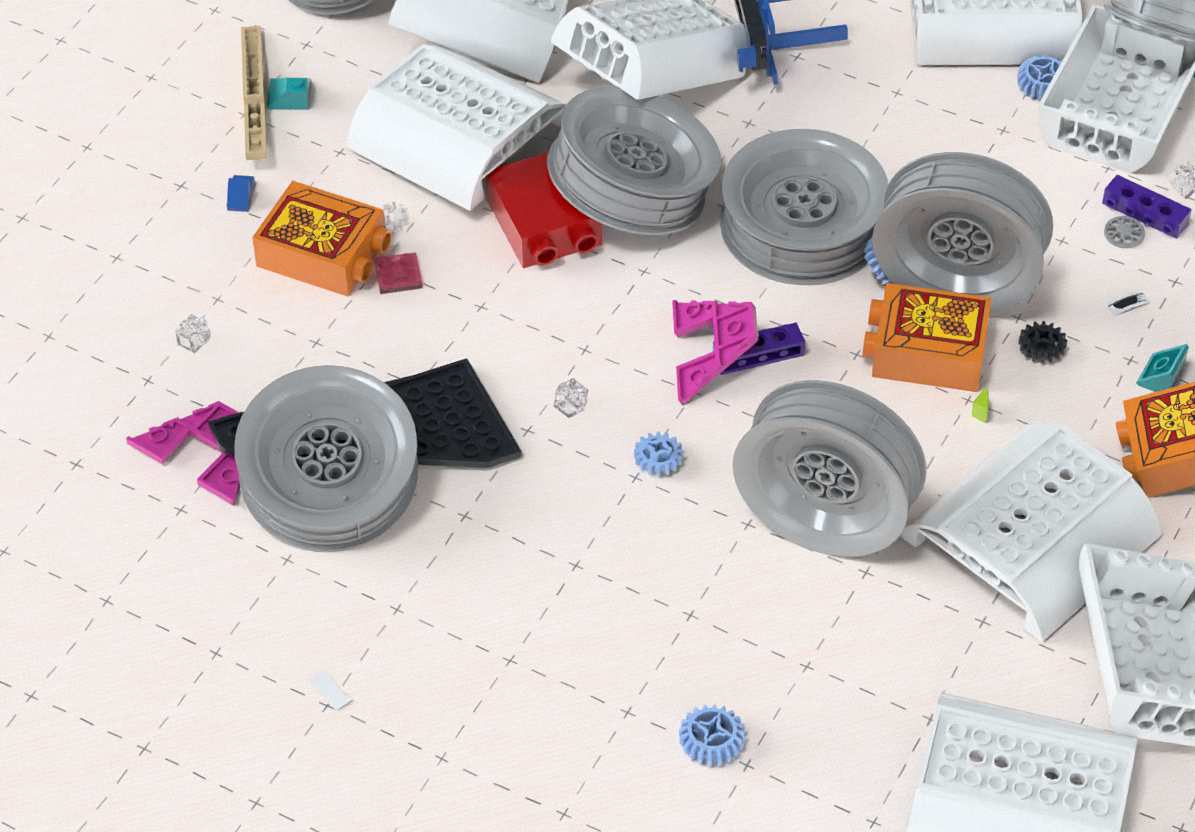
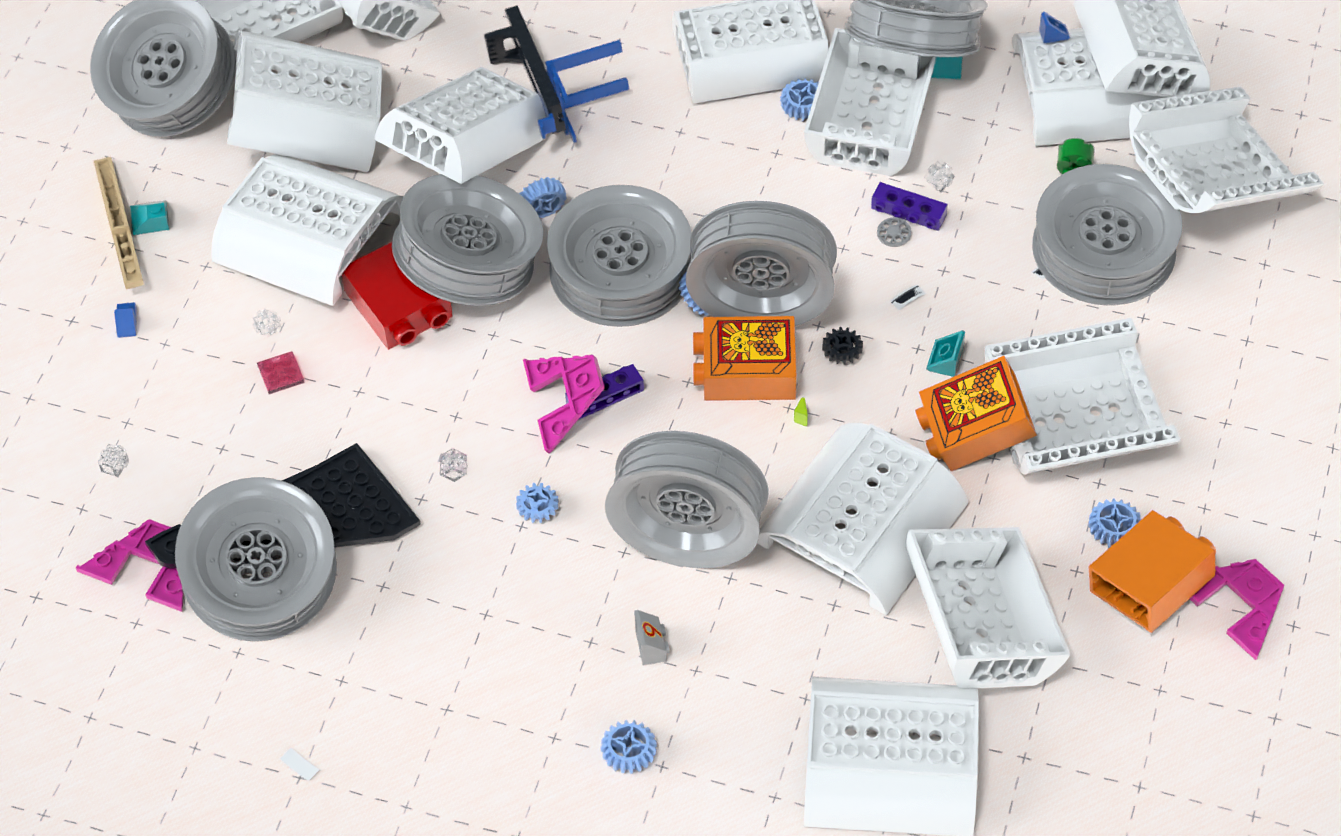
camera: 10 degrees left, 5 degrees up
(321, 238) = (208, 353): brick -> none
(731, 132) = (545, 196): none -> light blue gear
(760, 619) = (650, 638): none -> light grey slope

